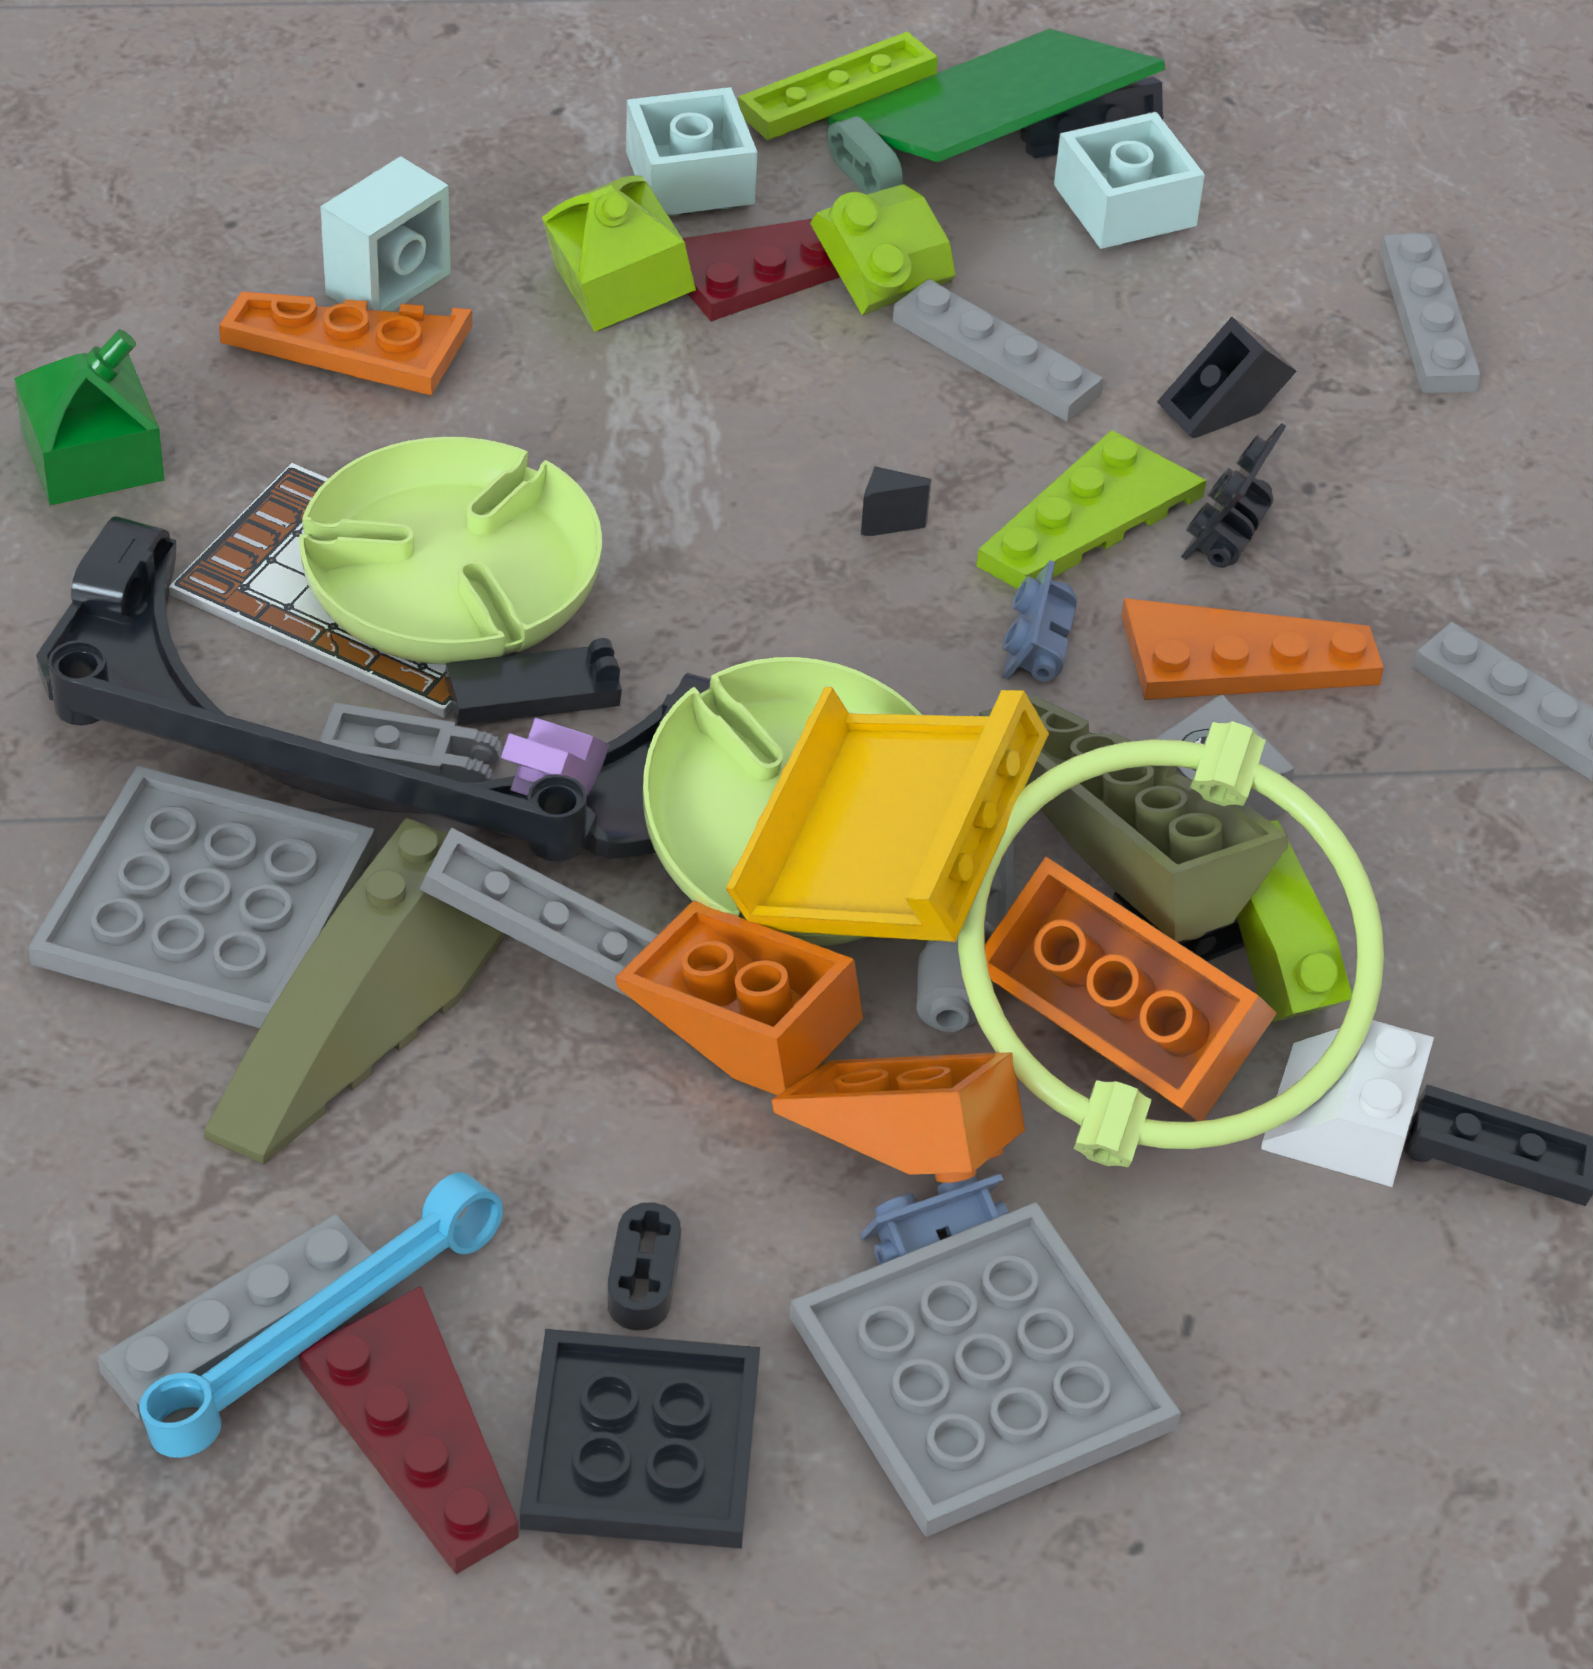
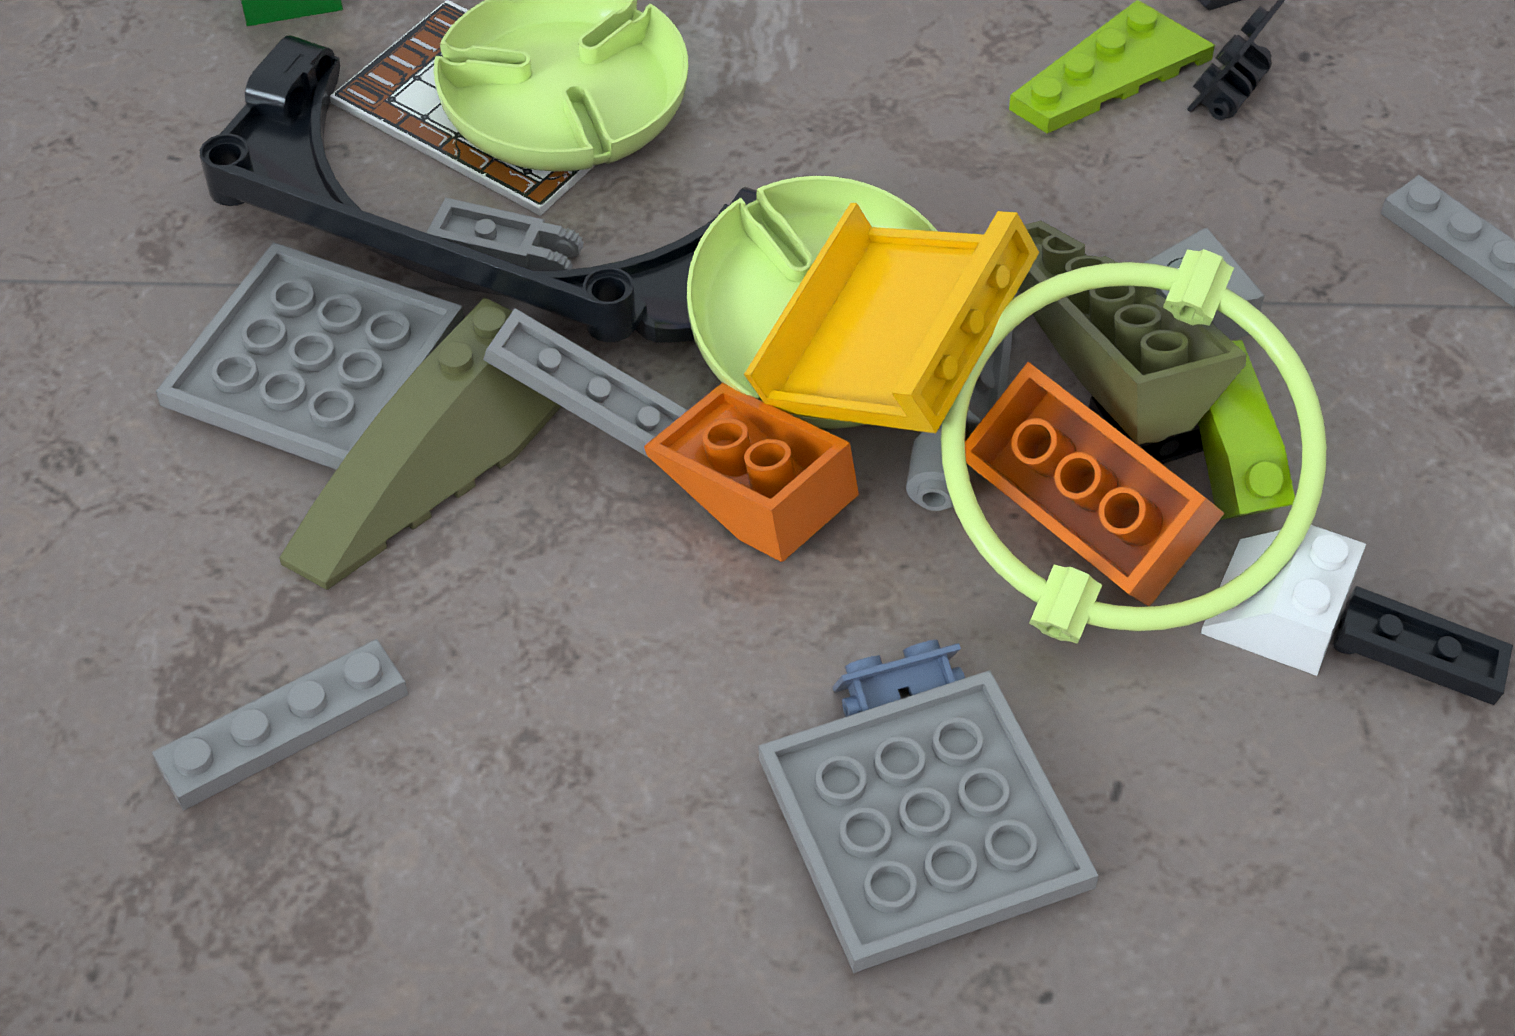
camera: 10 degrees right, 5 degrees up
(319, 1315) = (345, 730): medium azure piece -> none
(412, 1420) = (415, 829): dark red wing -> none
(534, 683) = (618, 190): black hinge -> none
(553, 751) = (620, 248): lavender brick -> none
(641, 1439) = (610, 863): black plate -> none
(657, 1268) = (625, 699): black beam -> none
(894, 502) = (943, 52): black slope -> none
(913, 1111) = (888, 580): orange slope -> none
(1042, 622) = (1055, 169): sand blue hinge -> none
(1239, 652) = (1226, 192): orange wing -> none

